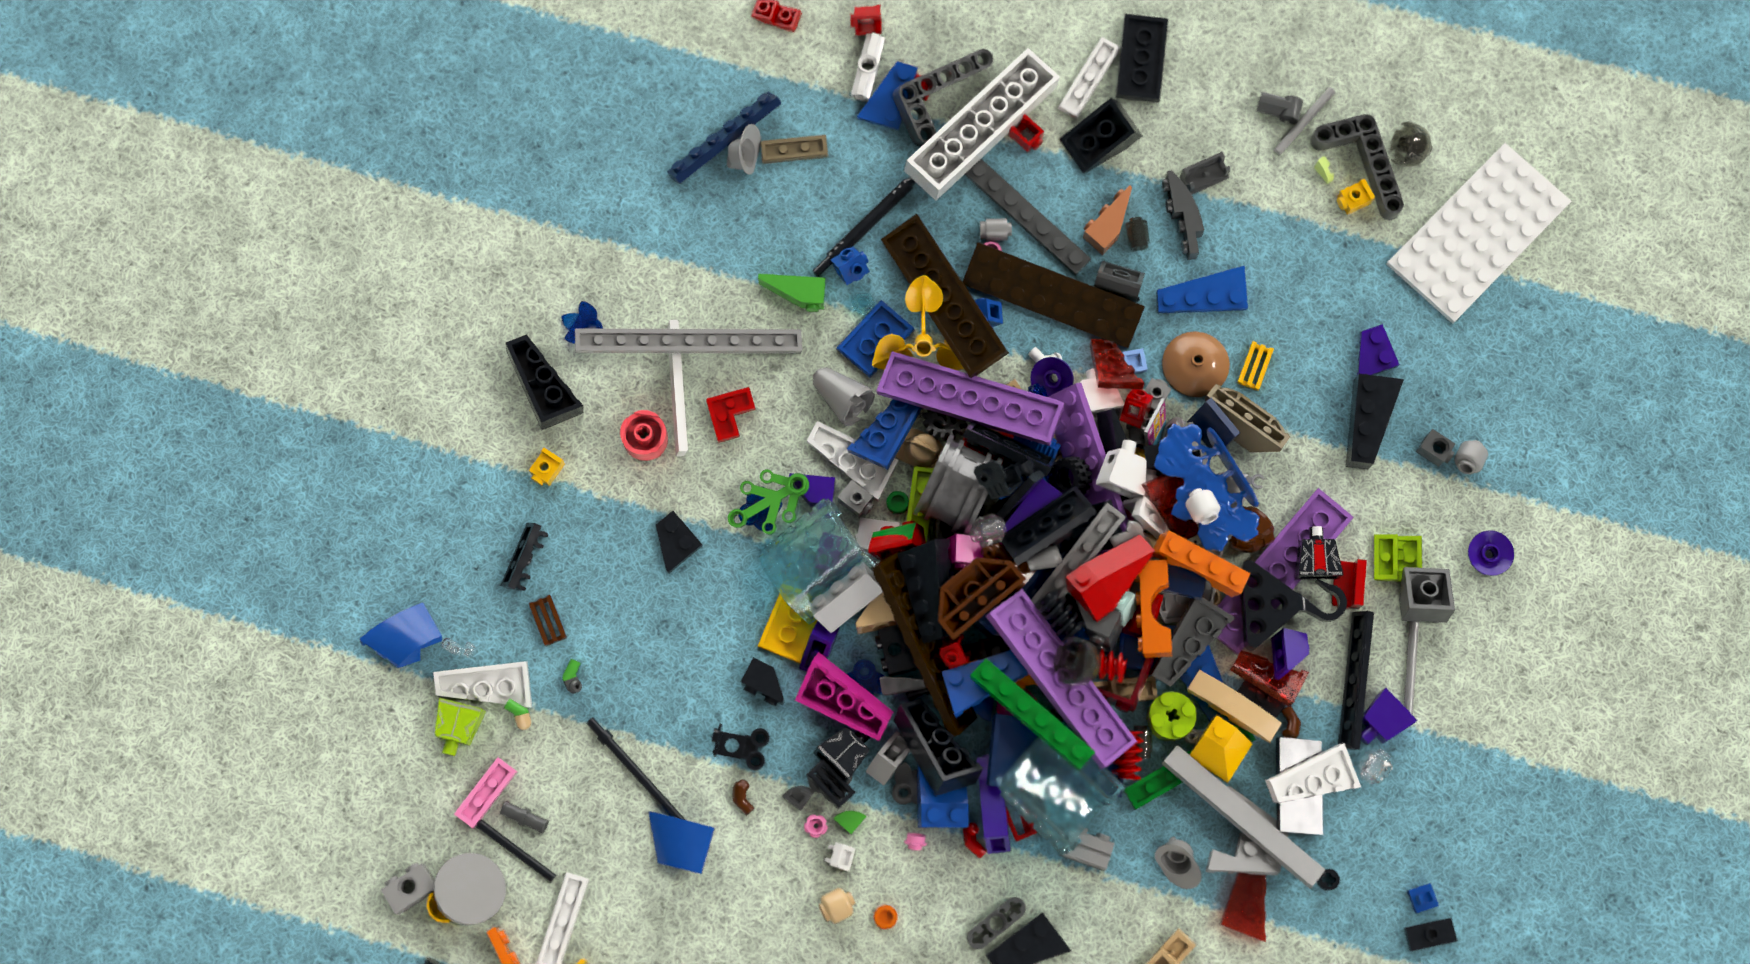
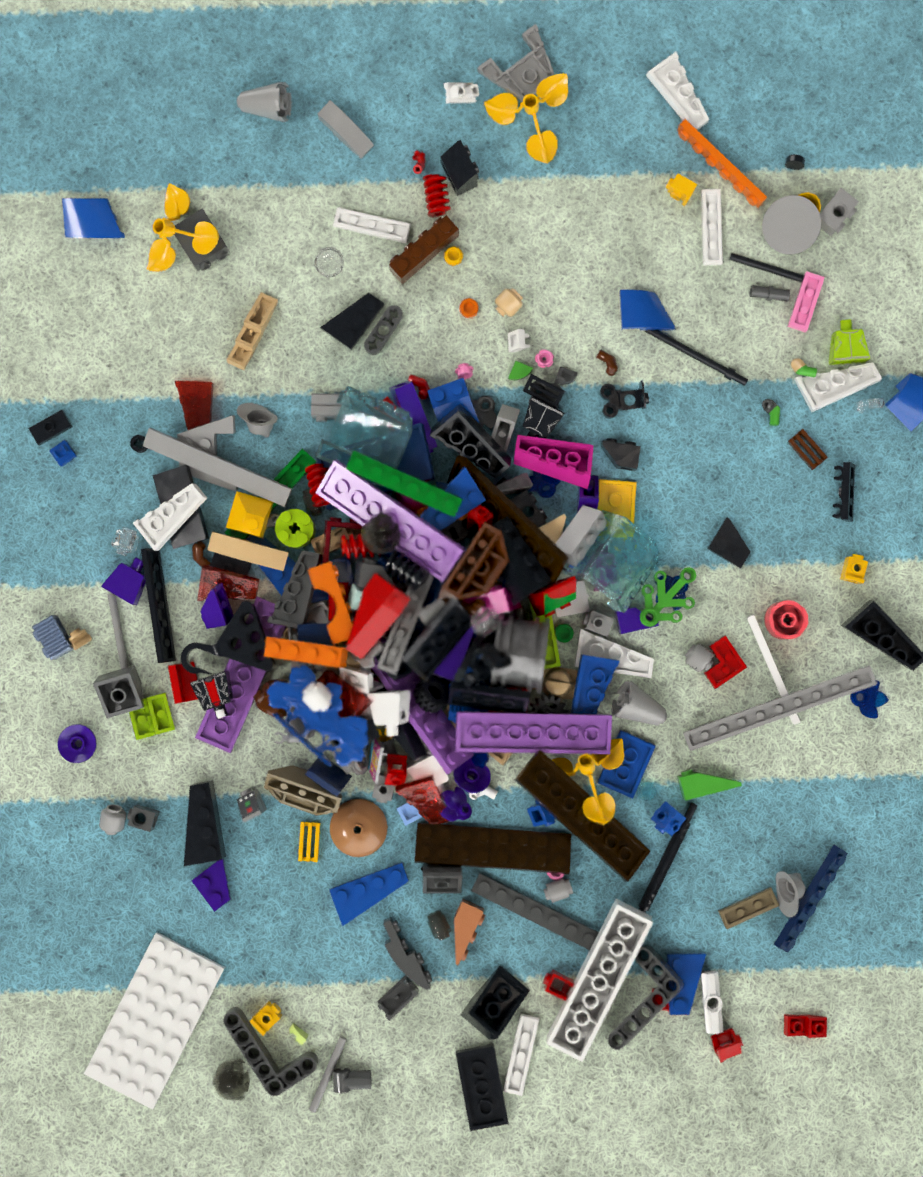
camera: 165 degrees right, 10 degrees up
(755, 426) = (699, 657): none -> light grey head
(1080, 355) = (456, 802): none -> dark purple plate
(1310, 422) = (250, 804): none -> slope
(1458, 671) = (79, 638): none -> tan plate
(1489, 681) = (53, 637): none -> sand blue brick

